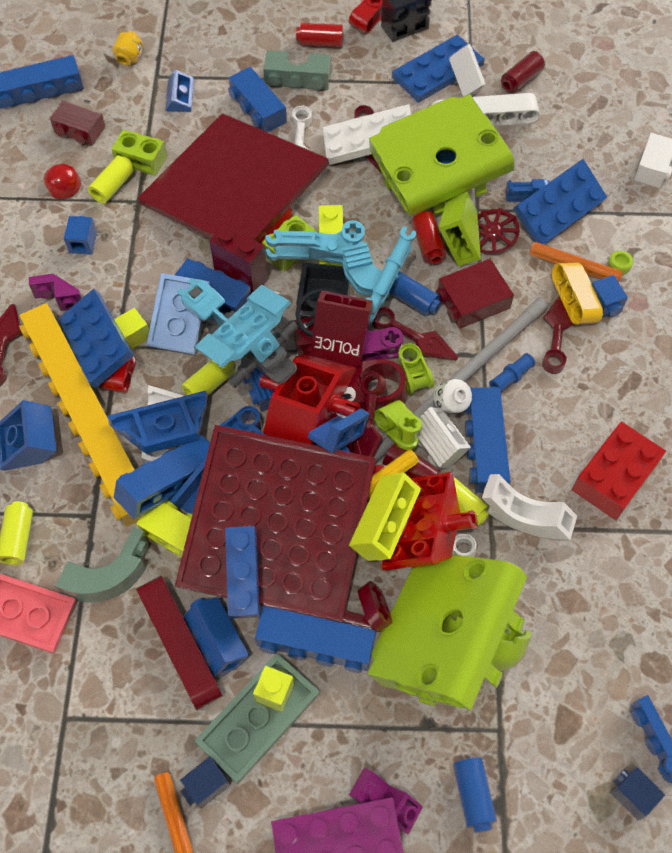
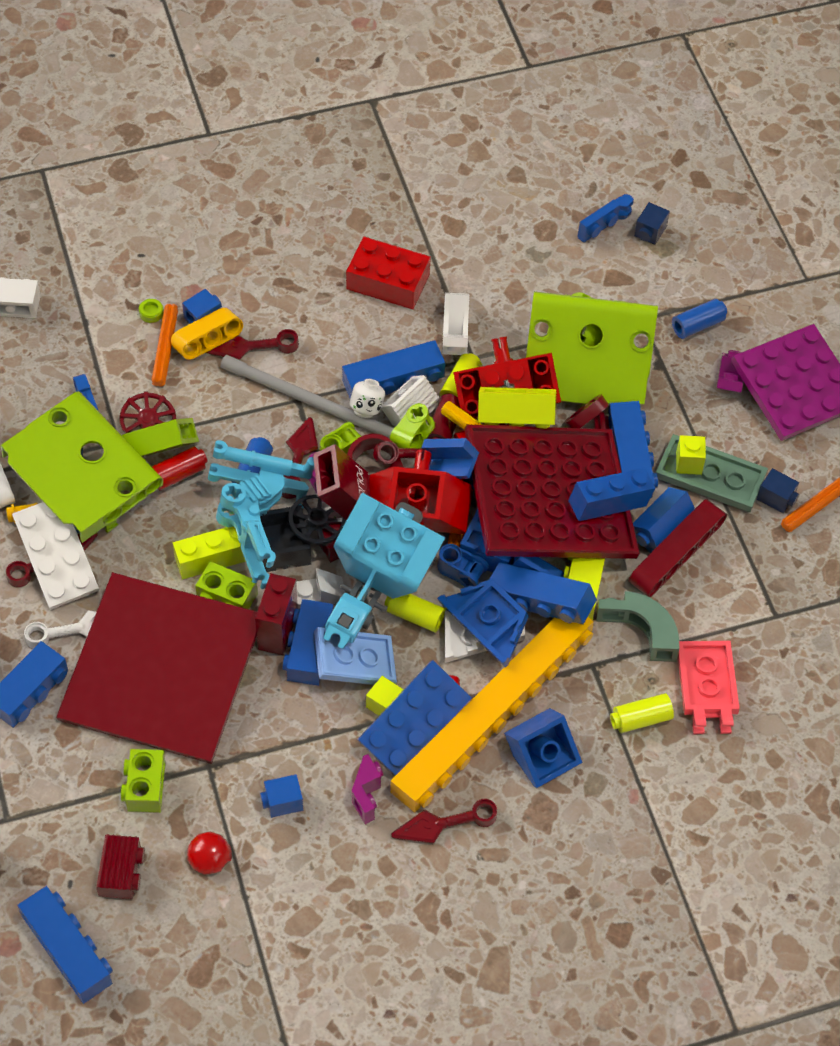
camera: 110 degrees left, 5 degrees down
(111, 179) = (193, 796): neon yellow brick -> none
(179, 92) = (31, 781): blue slope -> none
(474, 293) = (235, 414): dark red brick -> none
(513, 372) = (314, 368): blue pin -> none
(560, 202) = (97, 364): blue plate -> none

